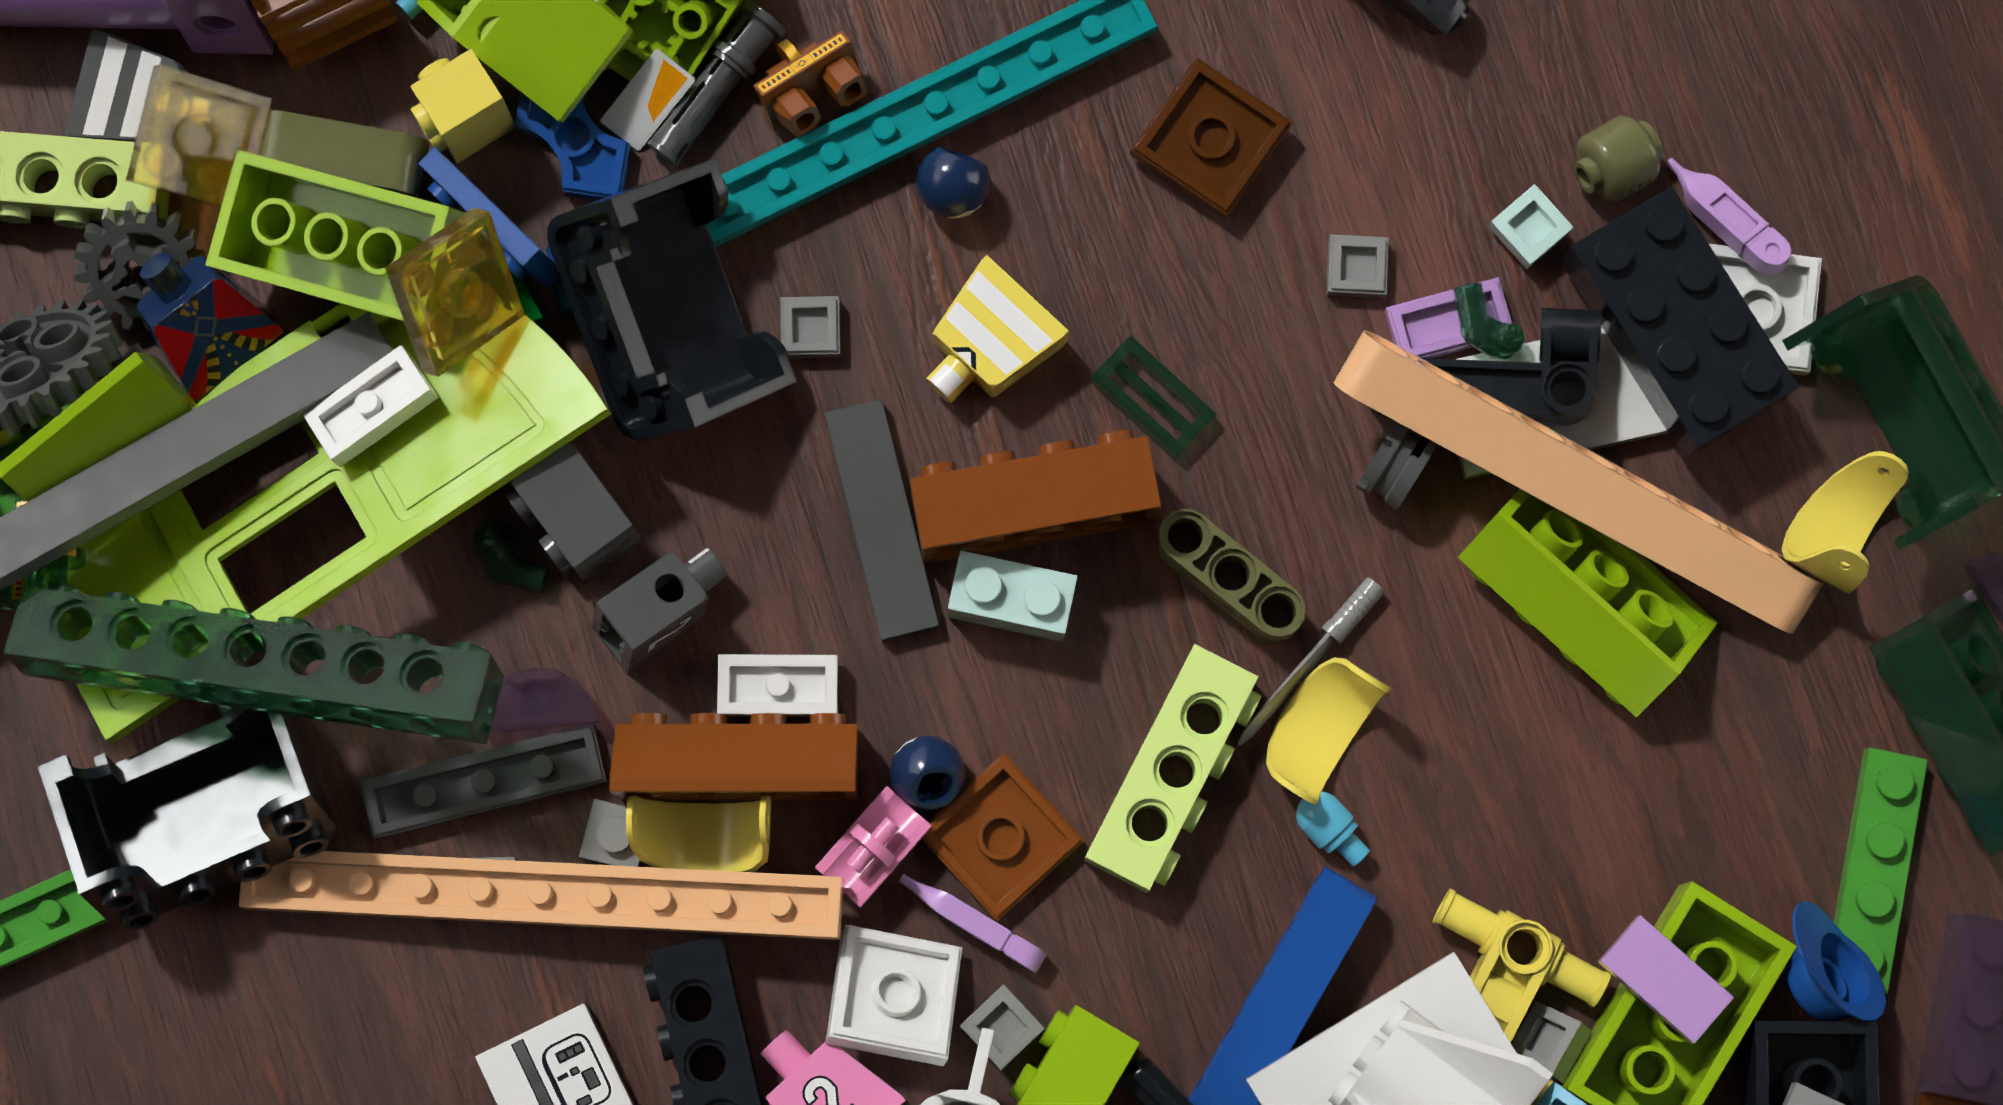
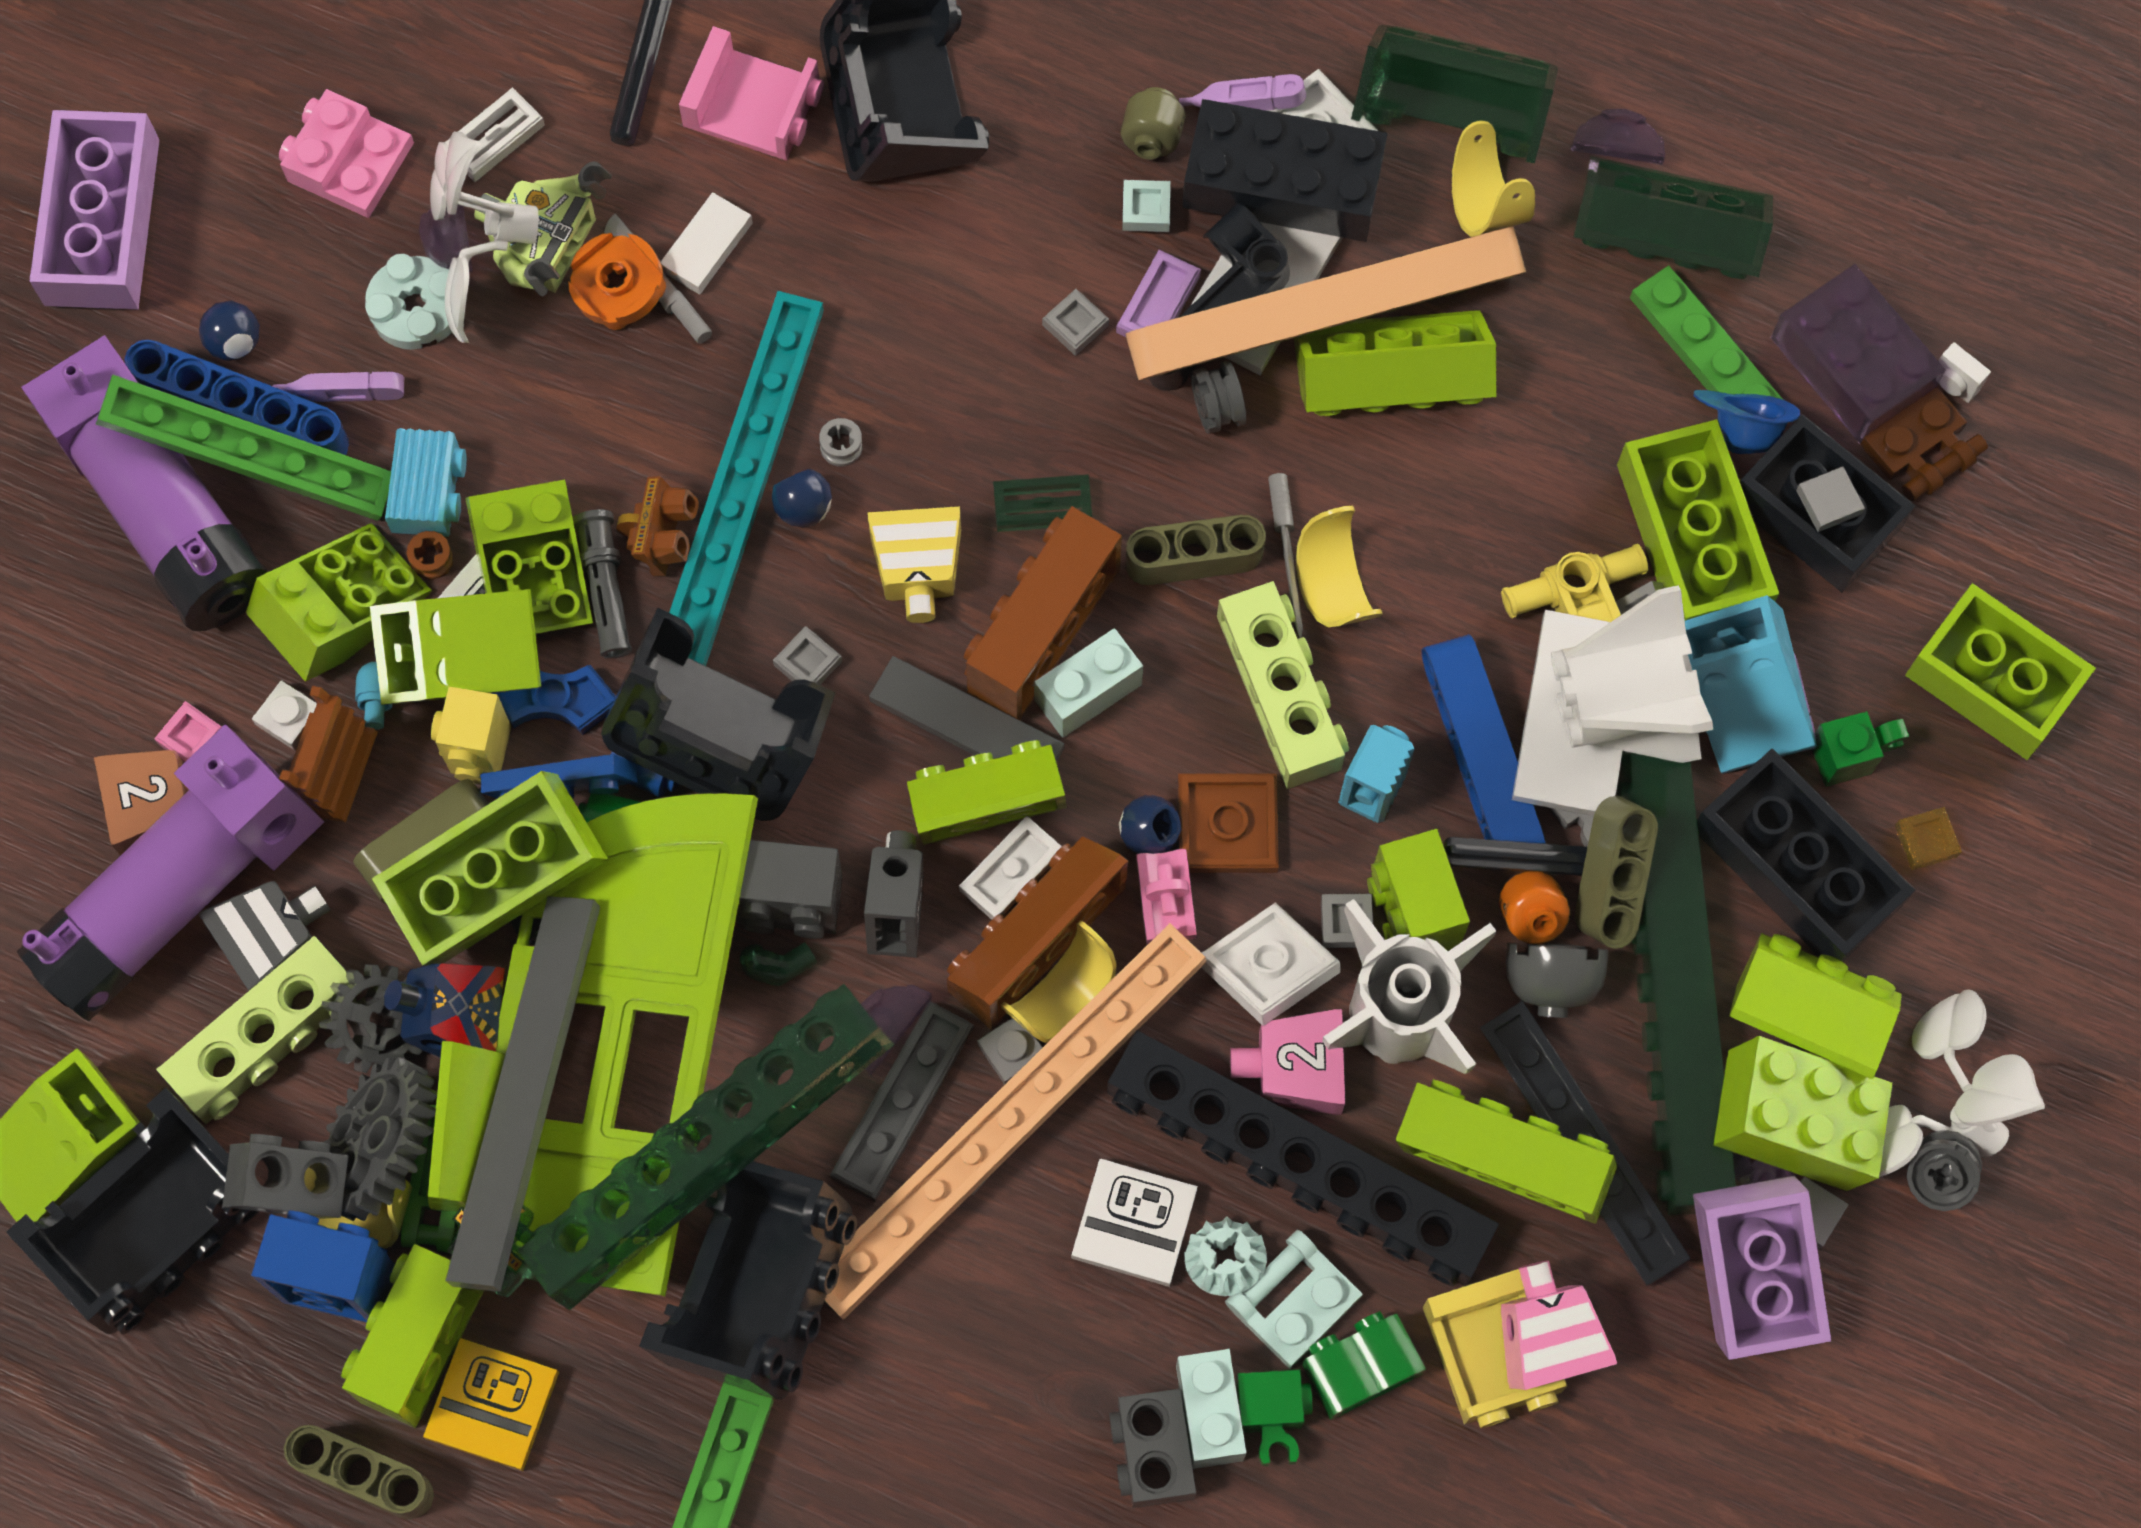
camera: 45 degrees left, 10 degrees down
(193, 134) = (333, 908): clear yellow plate -> none
(370, 406) = (610, 941): white plate -> none
(455, 291) = (596, 815): clear yellow plate -> none
(647, 99) = (575, 628): white sticker -> none
(820, 601) = (986, 792): none -> lime slope
(977, 924) = (1271, 881): lavender piece -> none
(1059, 172) = (844, 456): none -> light grey bush
(1160, 933) = (1376, 772): none -> medium azure brick
(1211, 138) = (919, 333): reddish brown plate -> none
(1331, 827) = (1401, 626): medium azure cylinder -> none
(1480, 329) = (1183, 282): clear green arm -> none
(1665, 979) = (1671, 504): lavender tile -> none

